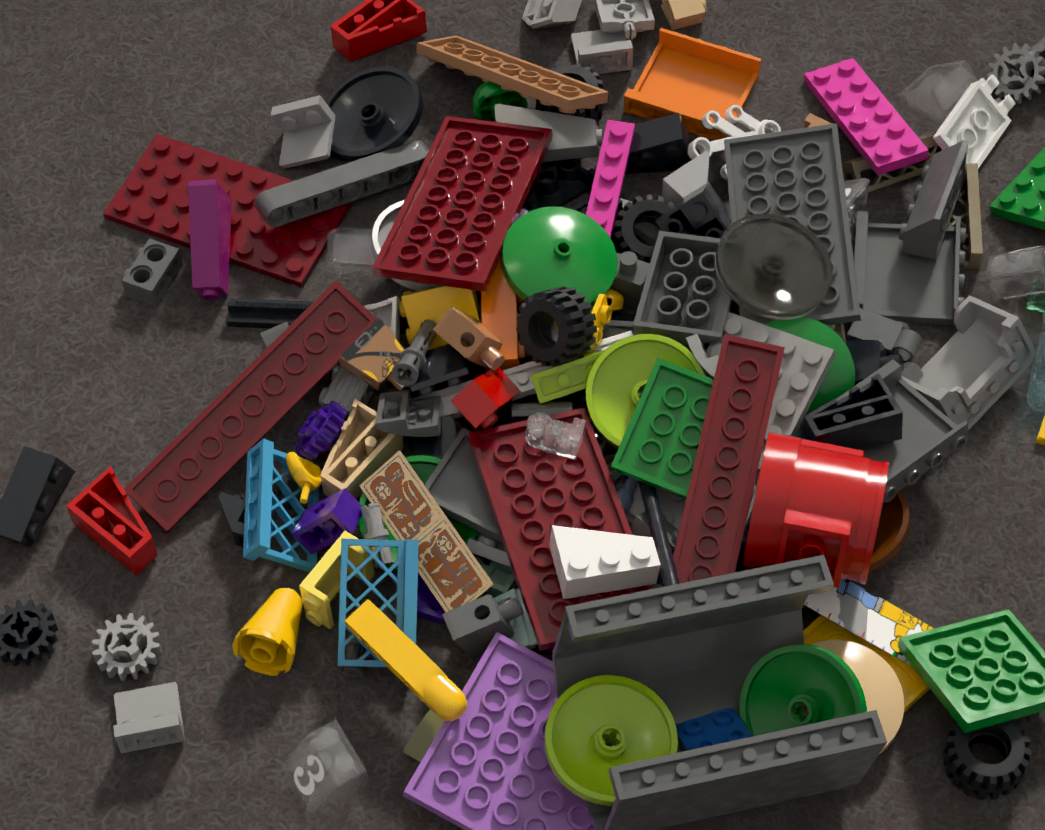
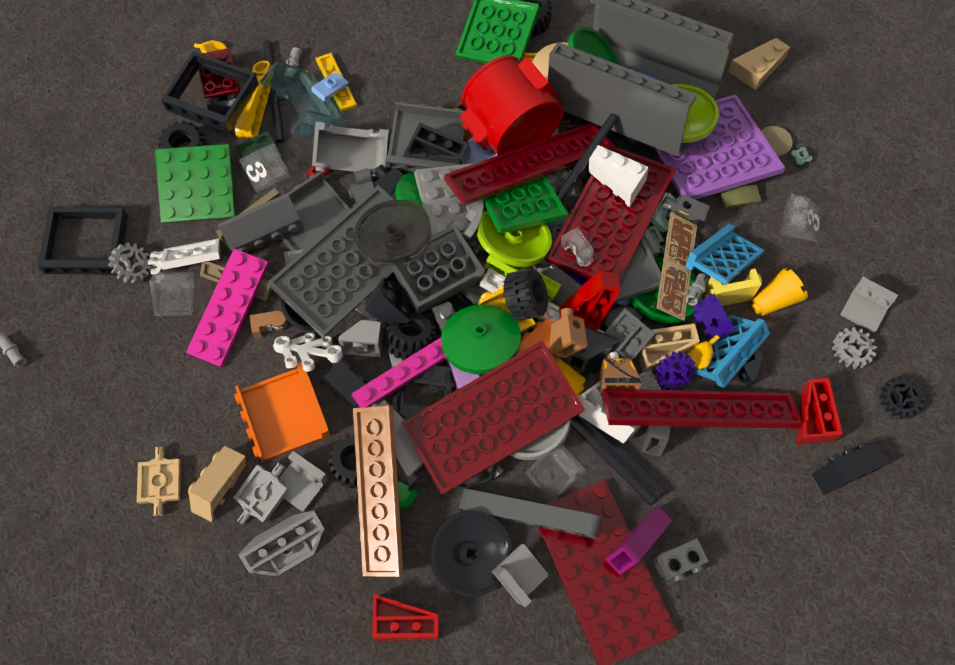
camera: 140 degrees left, 10 degrees up
(407, 661) = (739, 214): yellow piece -> none
(413, 358) = (605, 351): dark grey pin -> none

